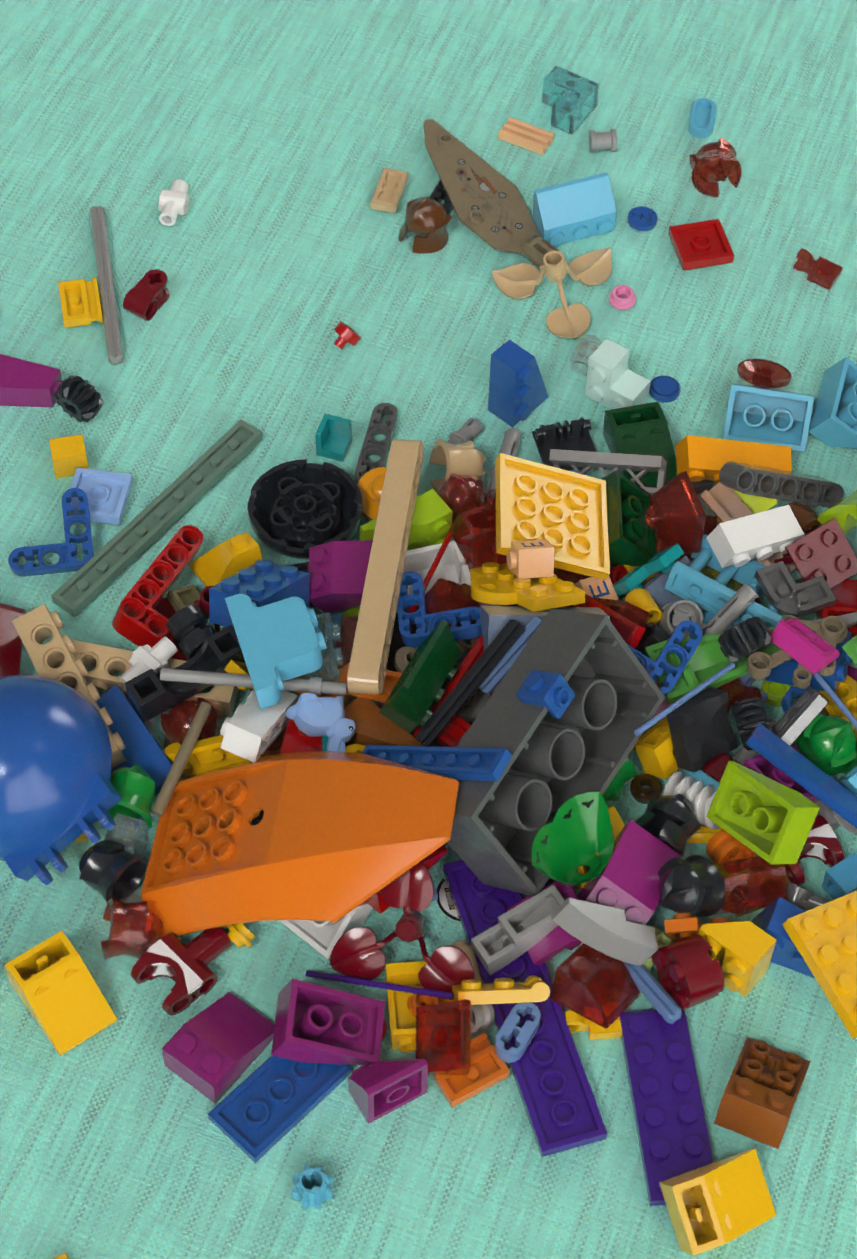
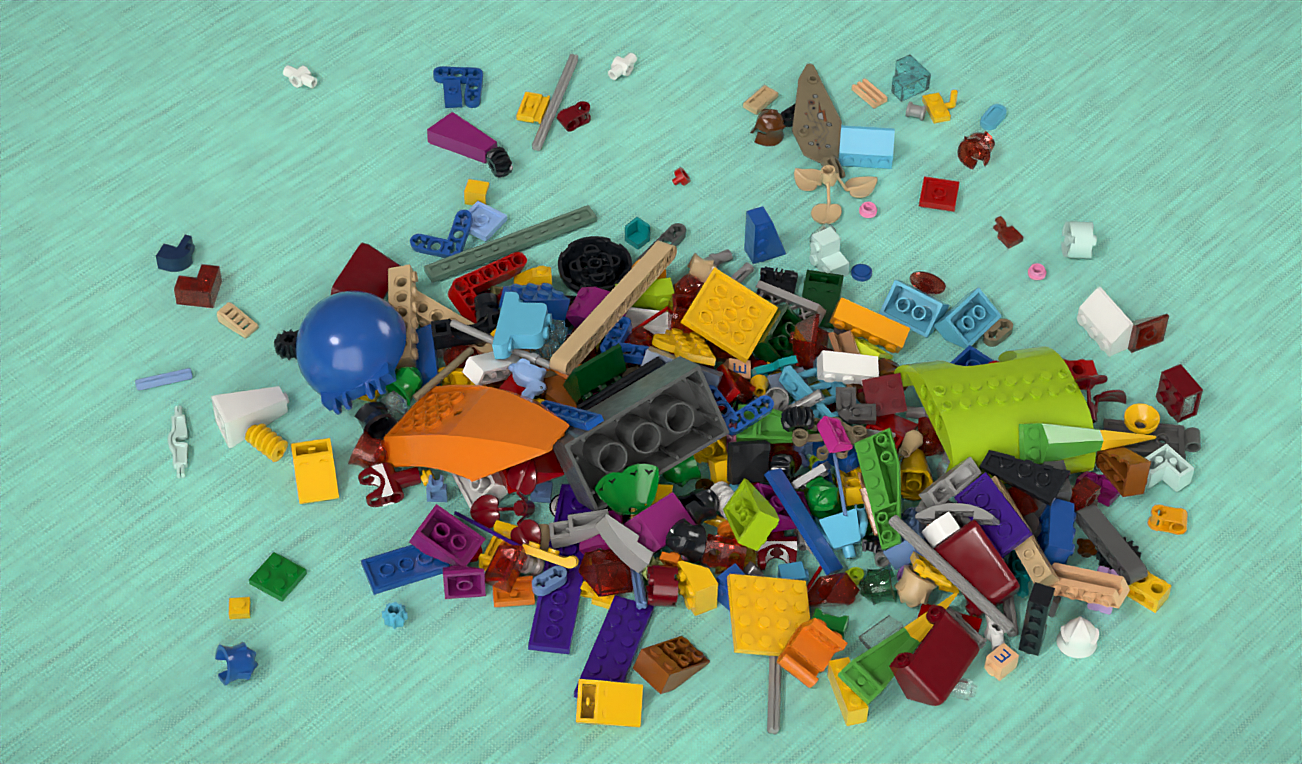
camera: 25 degrees right, 5 degrees down
(90, 1196) = (277, 576): none -> green plate
(146, 658) = (456, 314): white axle -> none
(218, 1045) = (383, 528): magenta slope -> none
(265, 949) = (436, 490): none -> medium blue plate
(531, 559) = (696, 331): light nougat brick -> none
(546, 690) = (644, 395): blue bracket -> none
(628, 129) = (937, 108): none -> yellow plate
(642, 218) = (912, 166): blue piece -> none
(685, 698) = (743, 439): medium blue piece -> none
(780, 484) = (881, 341): dark grey beam -> none

